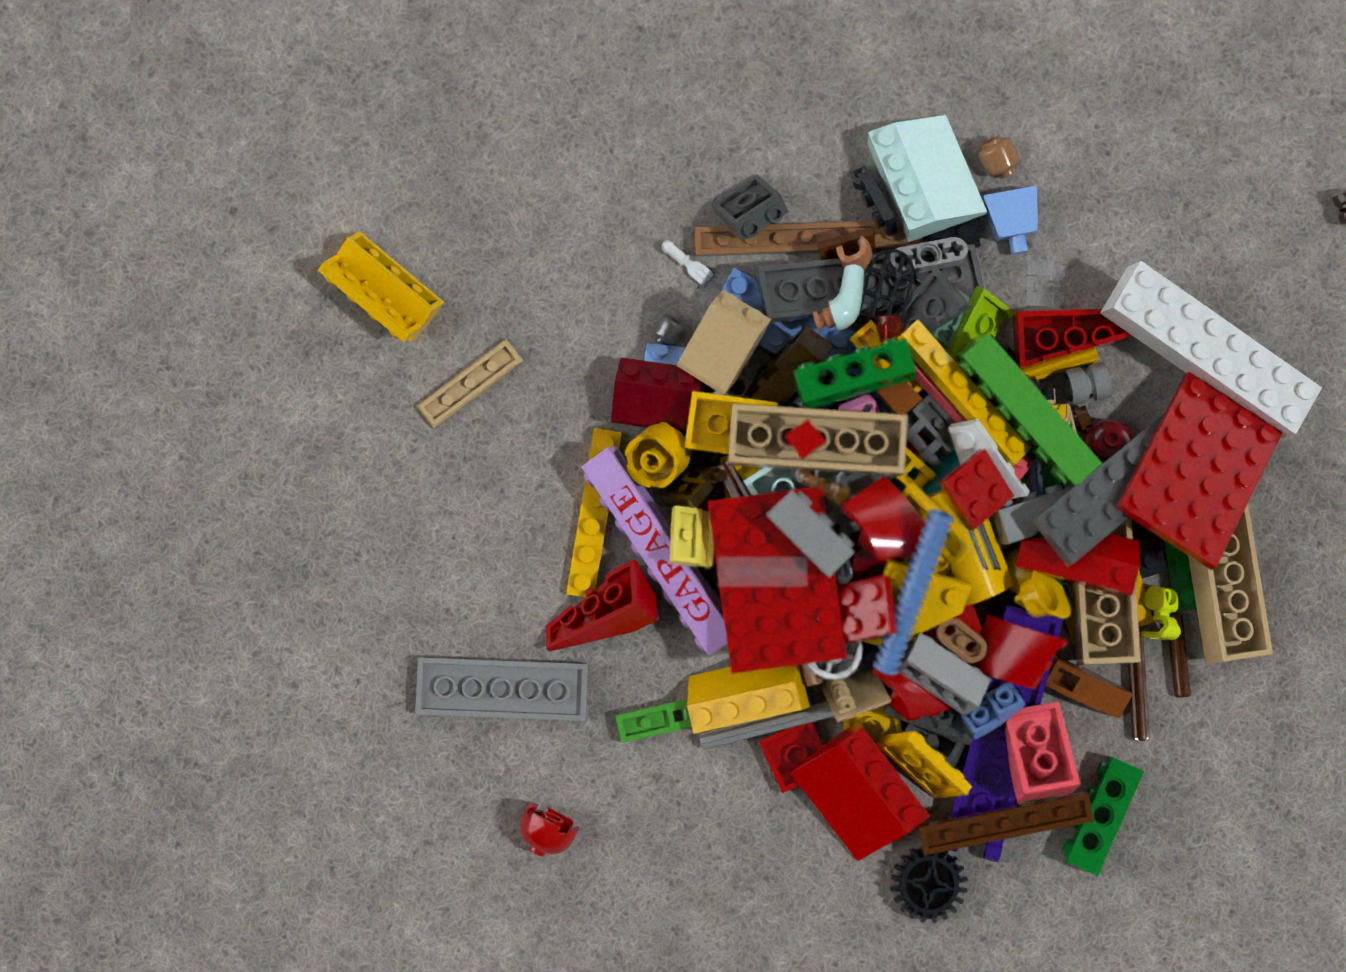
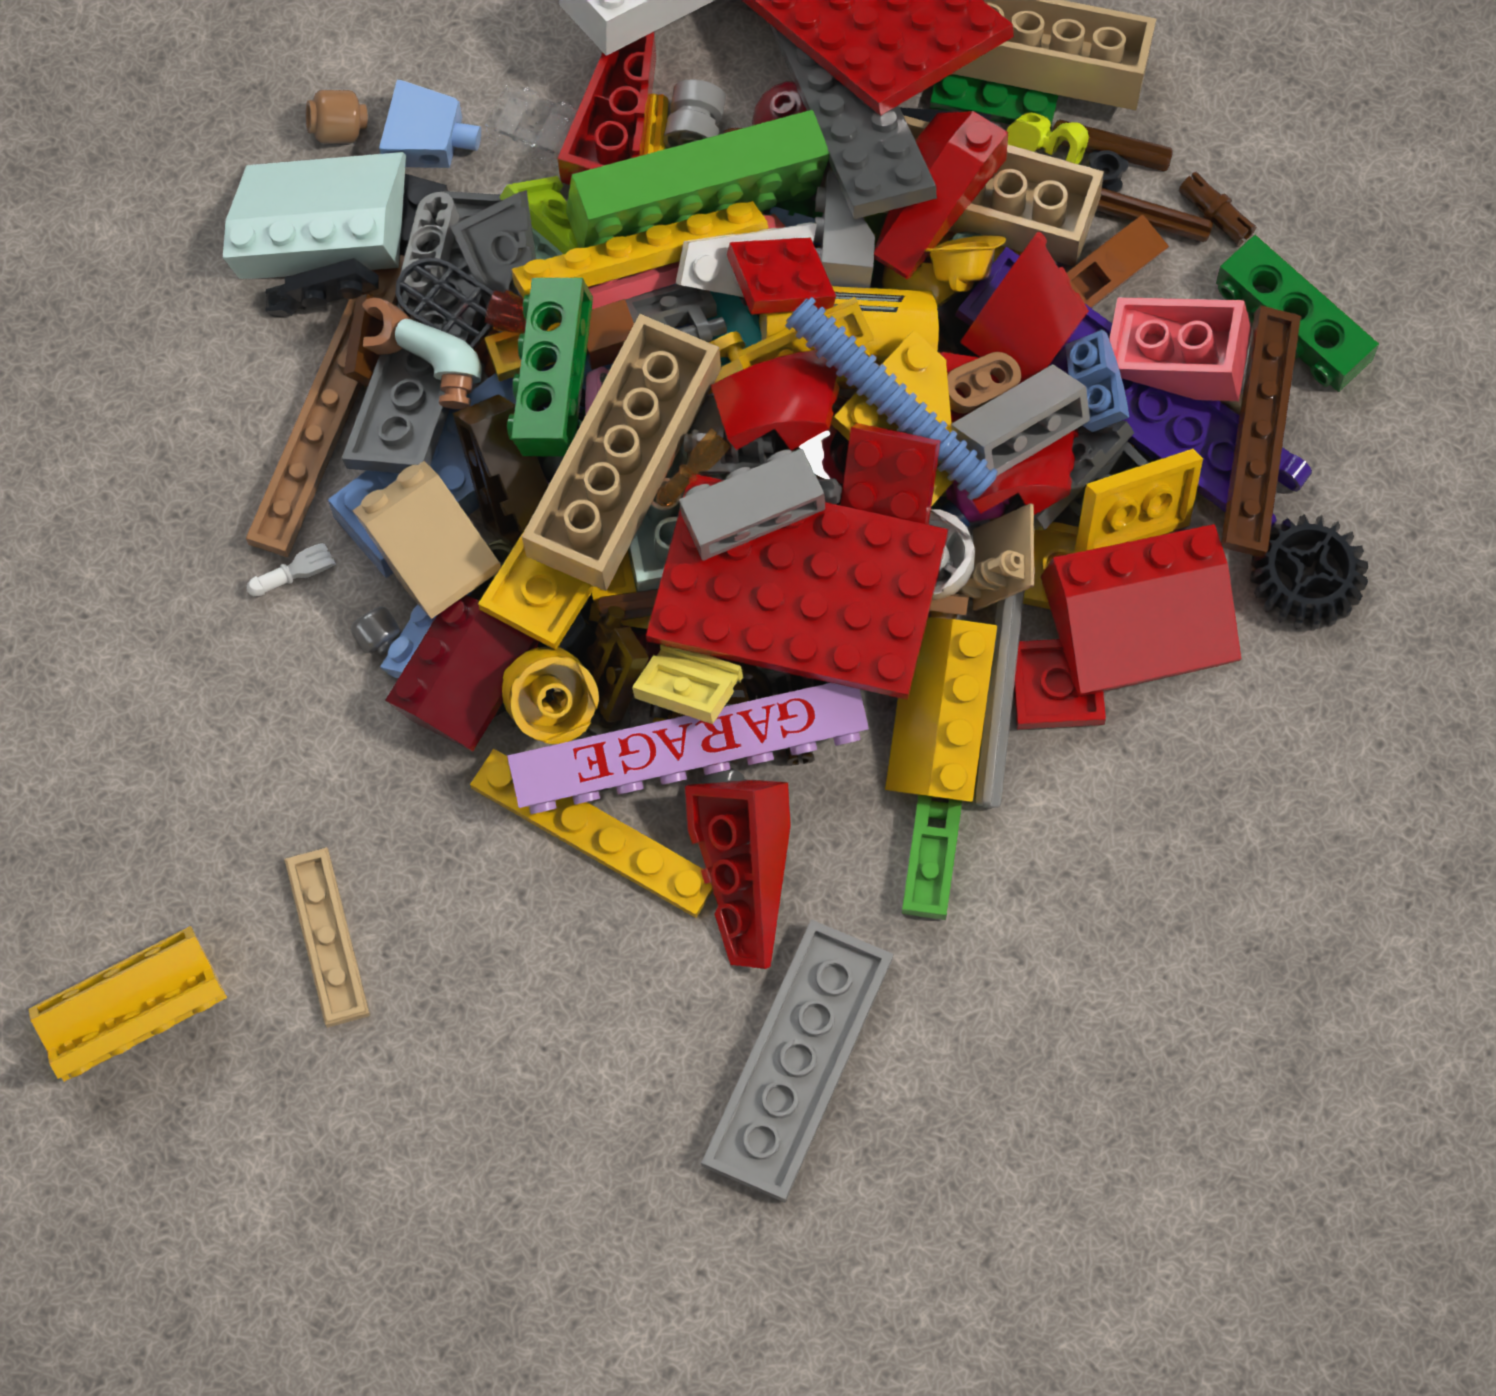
camera: 65 degrees left, 15 degrees down
(546, 831) = (1037, 1069): red cylinder -> none
(750, 207) = (254, 450): dark grey plate -> none
(762, 571) = (779, 589): clear plate -> none
(805, 439) = (615, 455): red tile -> none
(1159, 739) = (1217, 208): none -> reddish brown pin
(1165, 658) = (1113, 163): none -> black plate

